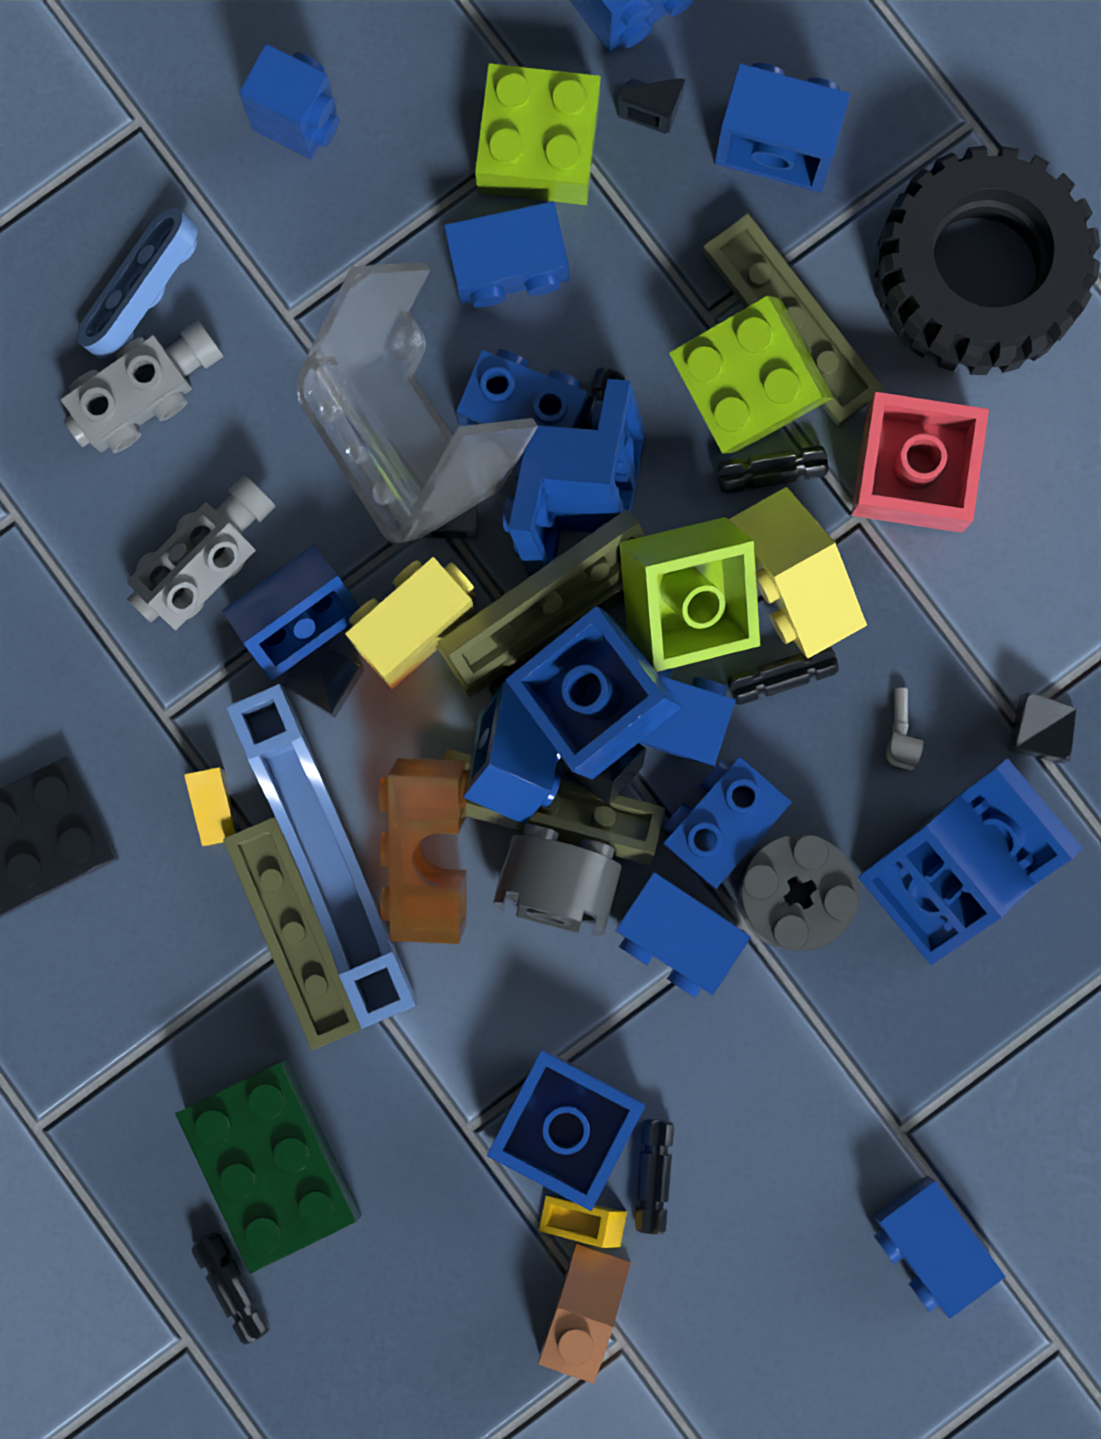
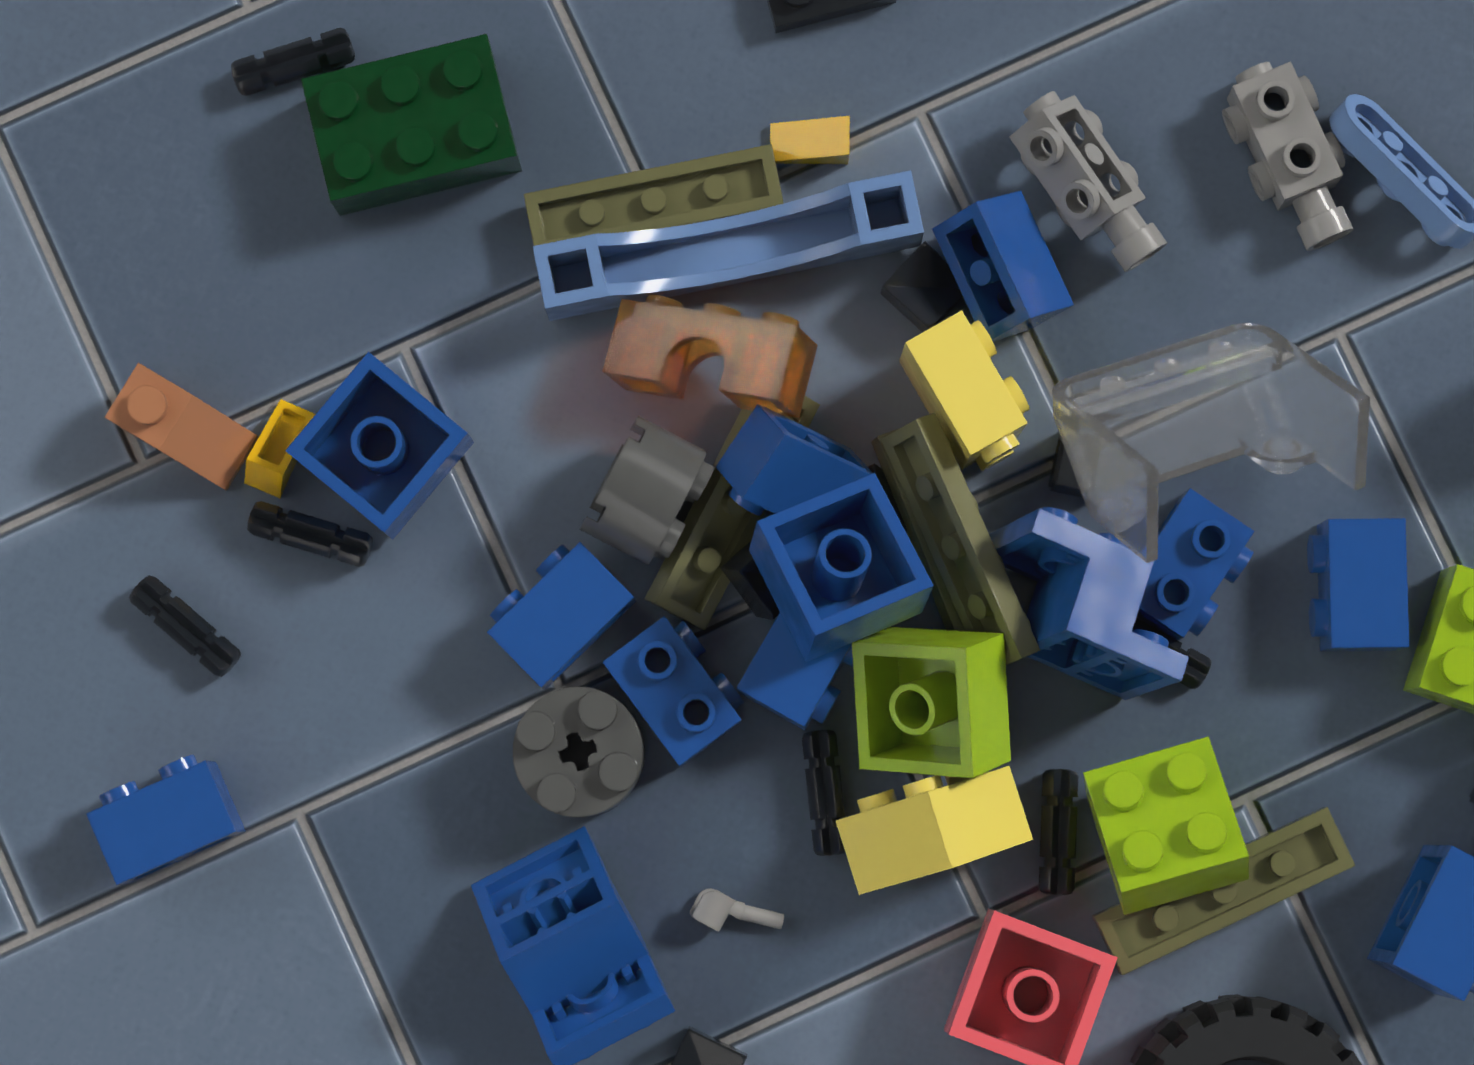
camera: 100 degrees right, 0 degrees up
(759, 1270) = (185, 625): none -> black axle

